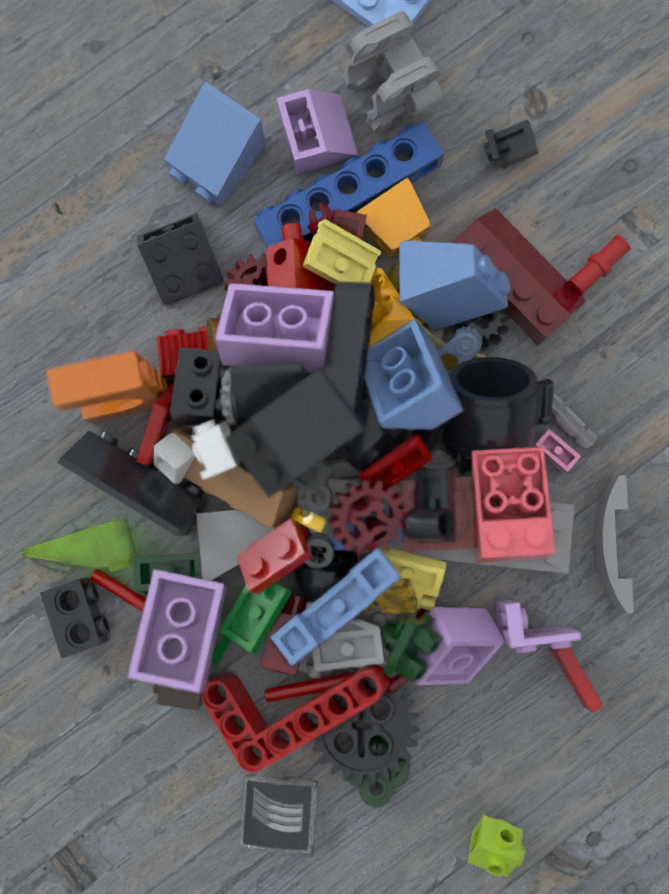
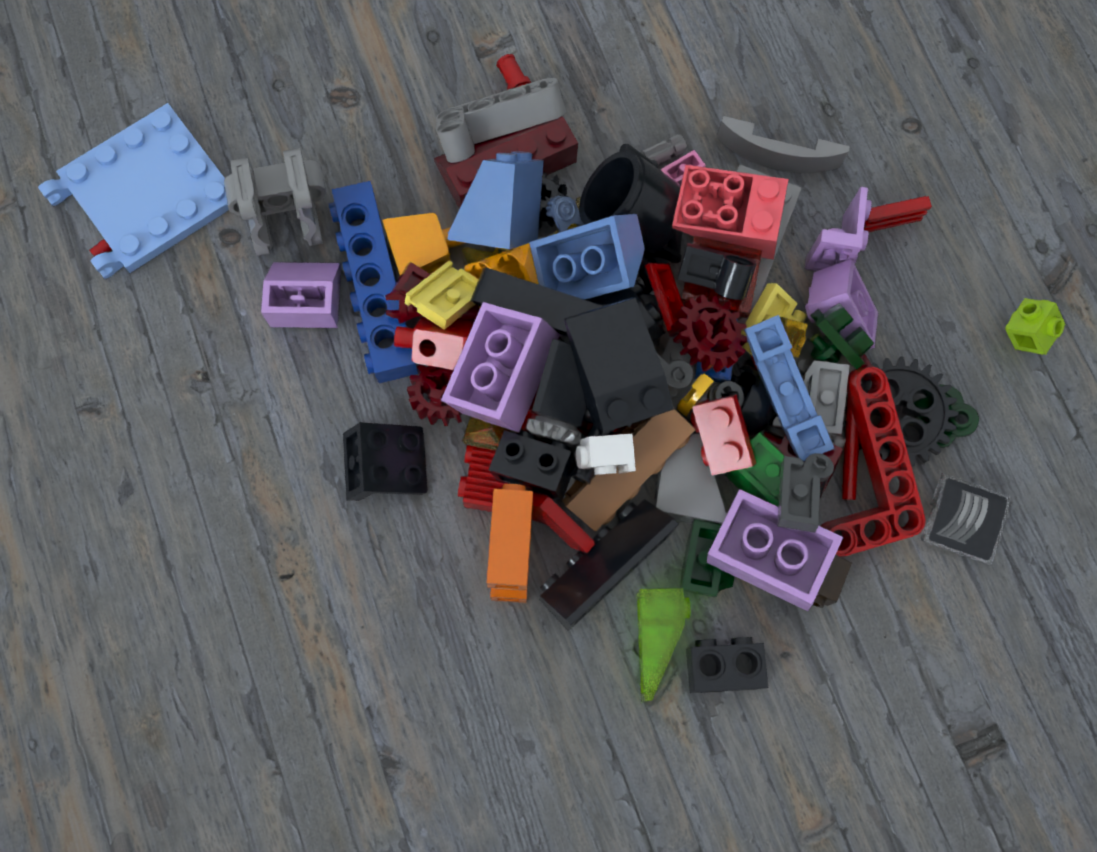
camera: 80 degrees left, 10 degrees down
(118, 589) = (712, 613): red bar -> none
(173, 457) = (594, 513): white slope -> none
(215, 146) = (285, 390): medium blue slope -> none
(233, 641) = (801, 491): none -> dark grey hinge
(511, 144) = (379, 124): black bracket -> none
(551, 250) = (496, 116): none -> light grey beam

